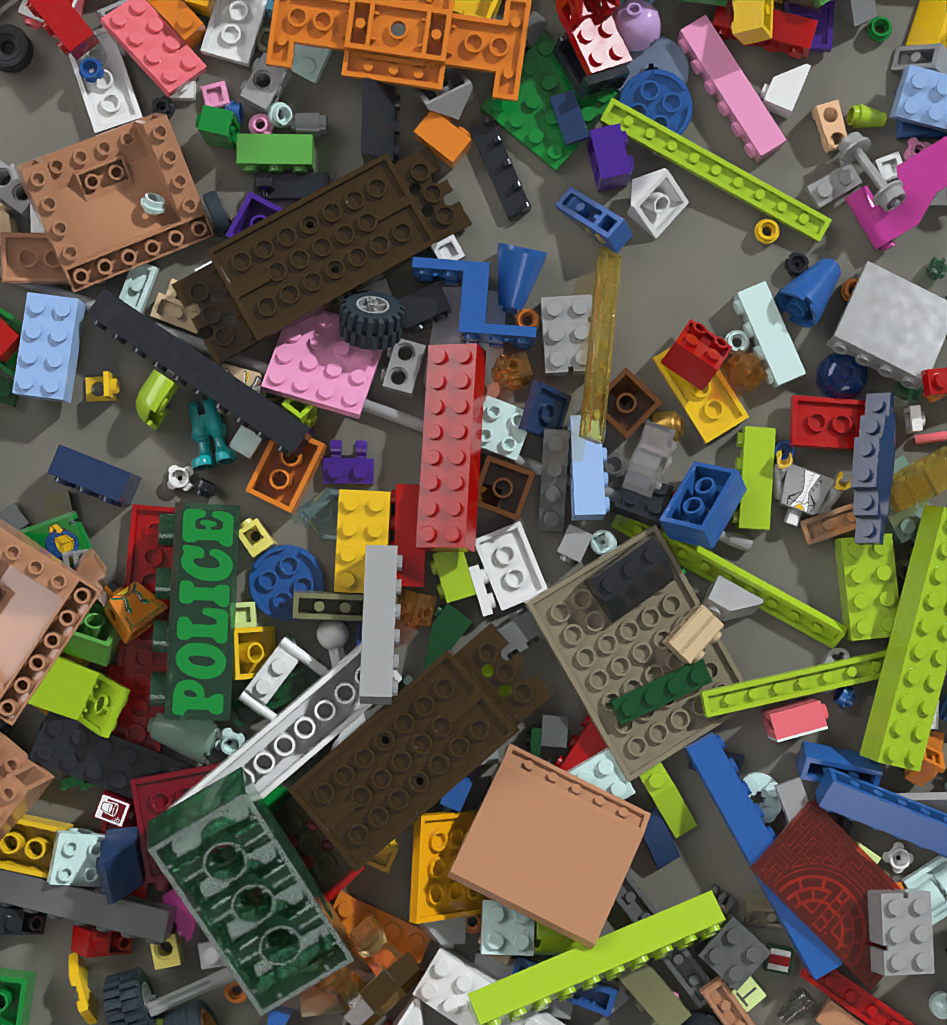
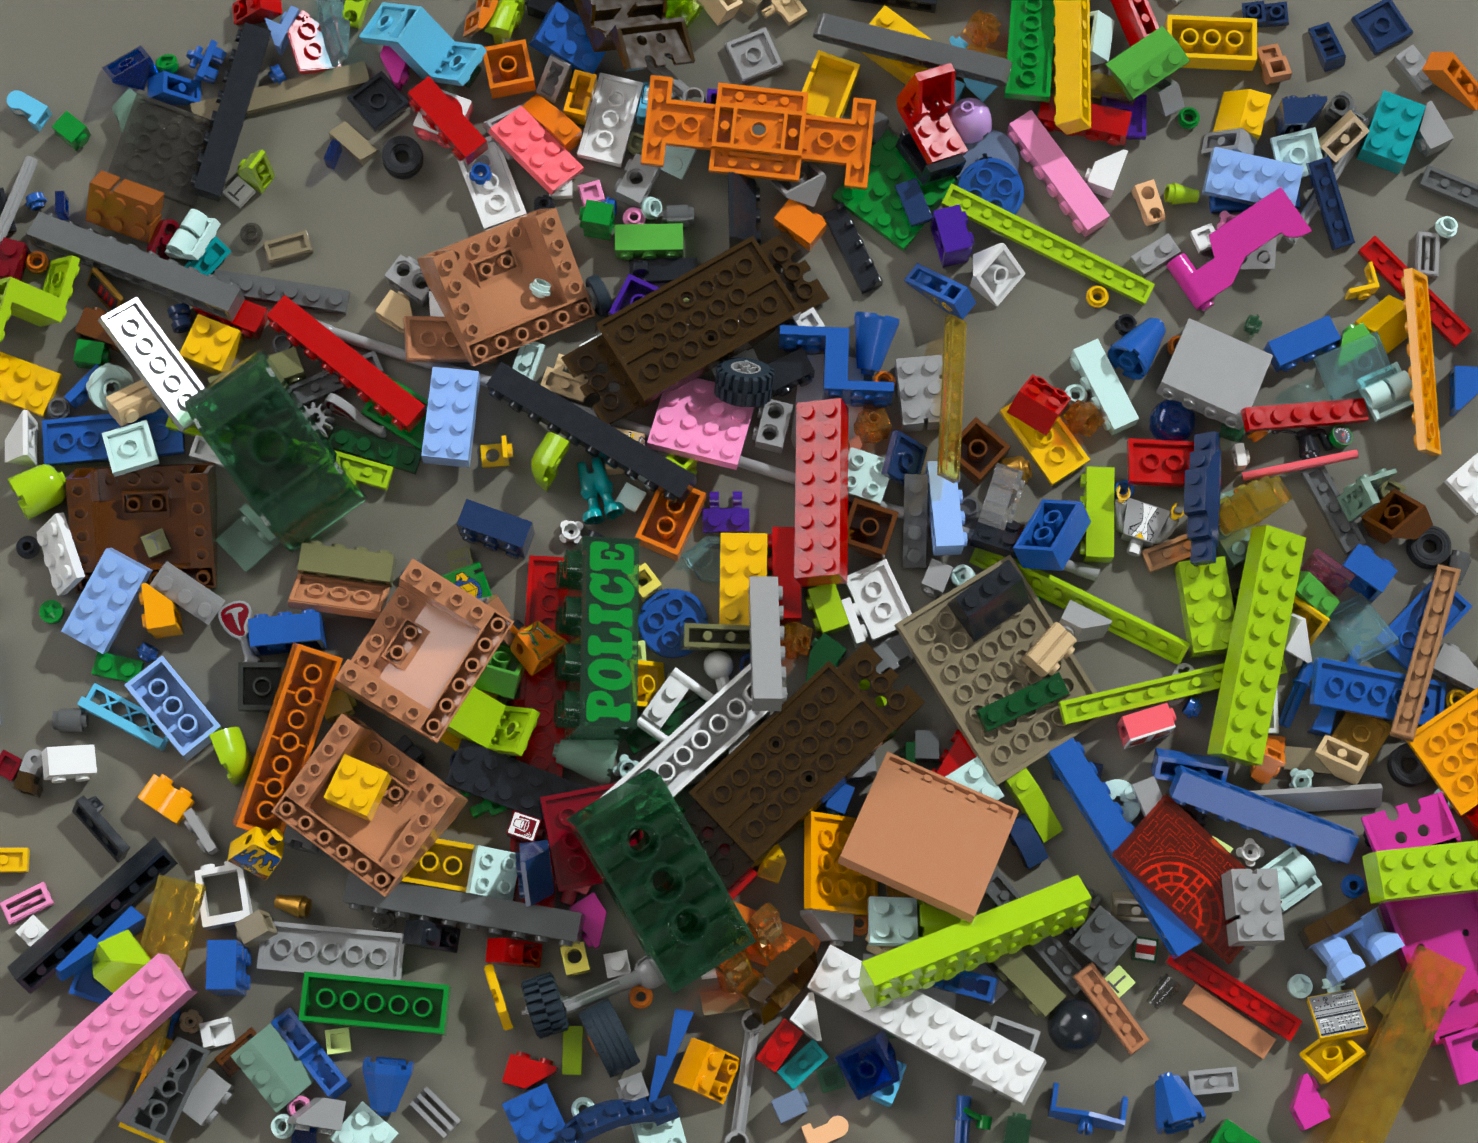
camera: 10 degrees left, 10 degrees down
(890, 194) = (1171, 221): light grey piece -> none

